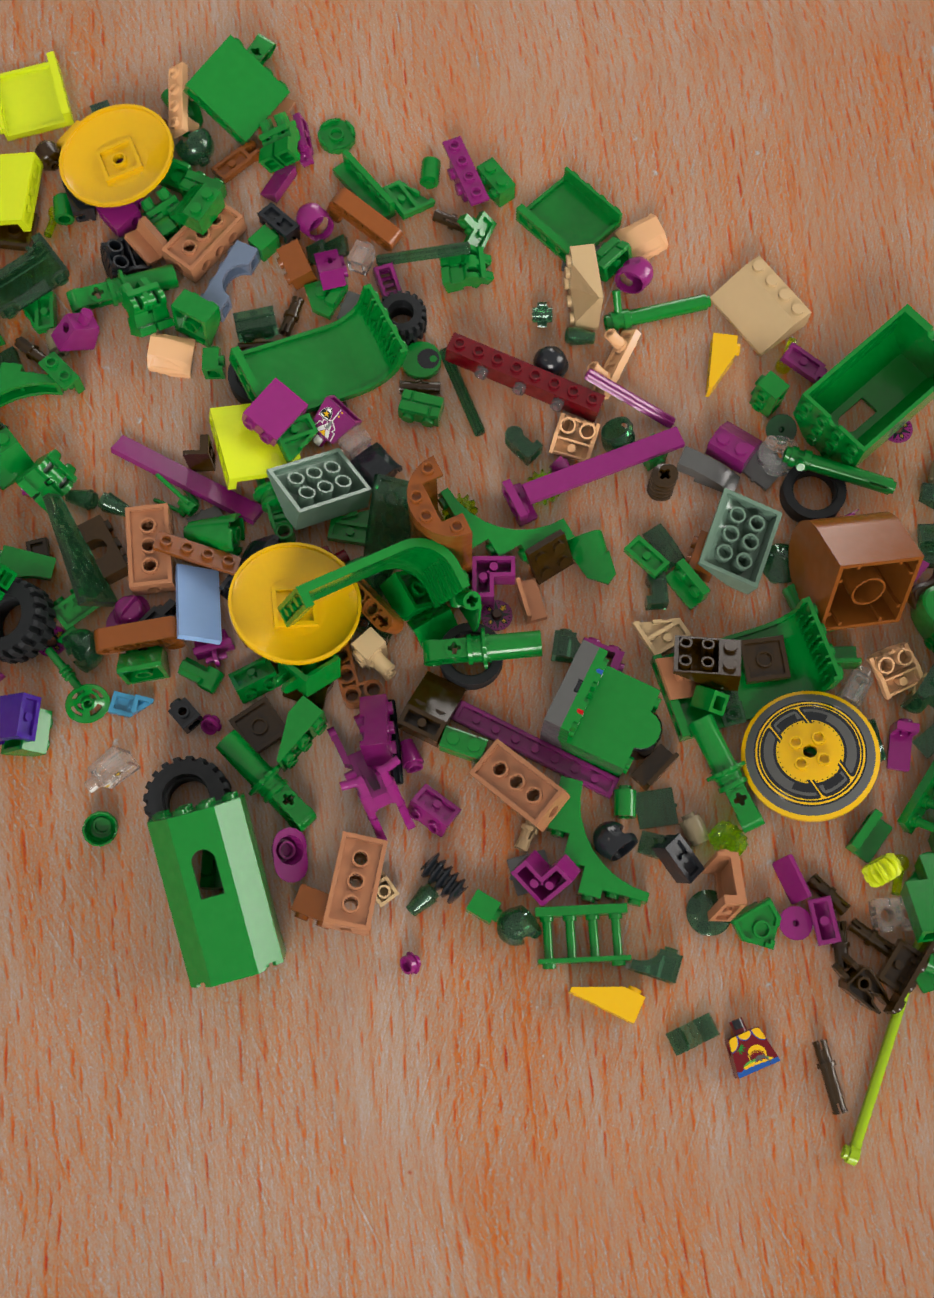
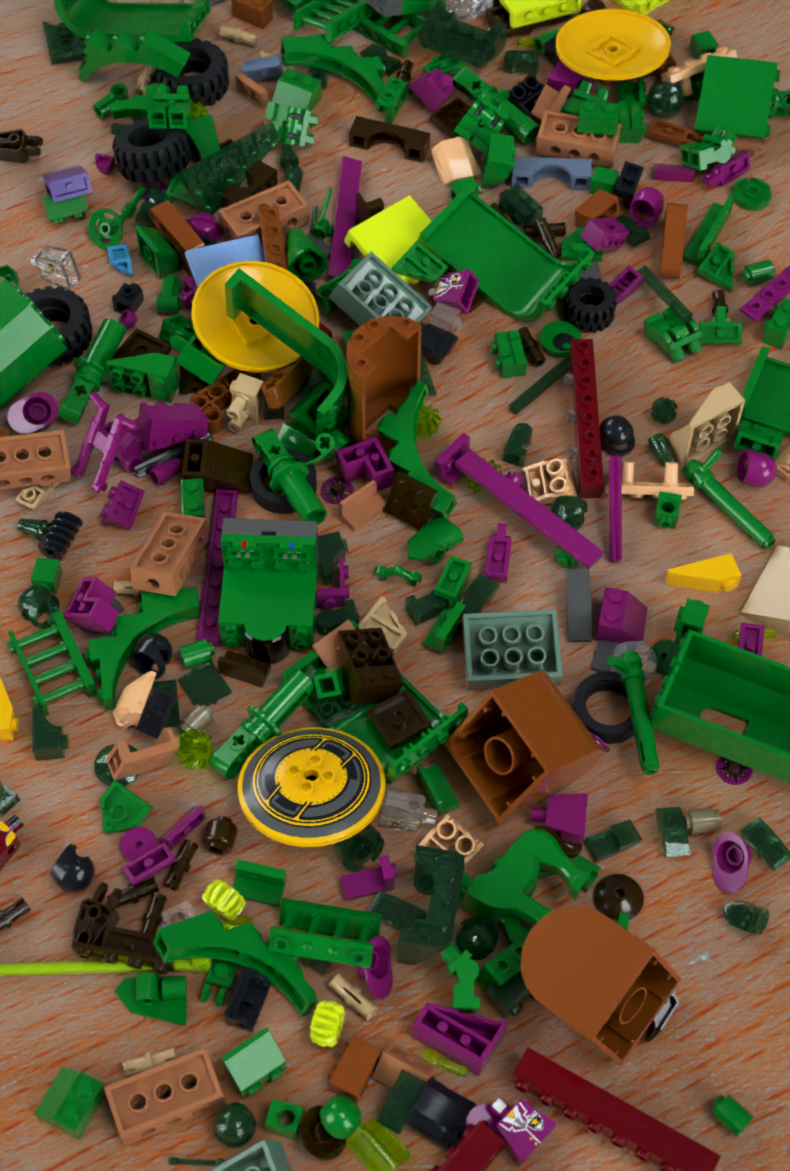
camera: 65 degrees right, 15 degrees down
(76, 243) = (521, 61): none -> clear green leg
(115, 332) = (450, 116): none -> dark brown plate
(126, 380) = (370, 132): none -> dark brown arch
(145, 87) = (702, 43): none -> green brick
(273, 412) = (429, 235): magenta panel -> none
(307, 318) = (547, 238): none -> dark brown pin
(361, 257) = (636, 254): clear brick -> none
(614, 599) = (411, 577): none -> green arm
(628, 510) = (498, 554): none -> magenta hinge
(641, 663) = (329, 620): none -> clear green leg
(642, 353) = (667, 503): none -> green brick
(657, 874) = (133, 700): none -> light nougat slope
(662, 482) = (539, 565): dark brown piece -> none
(810, 986) = (72, 871): none -> black helmet
(815, 850) = (220, 835): none -> dark brown head

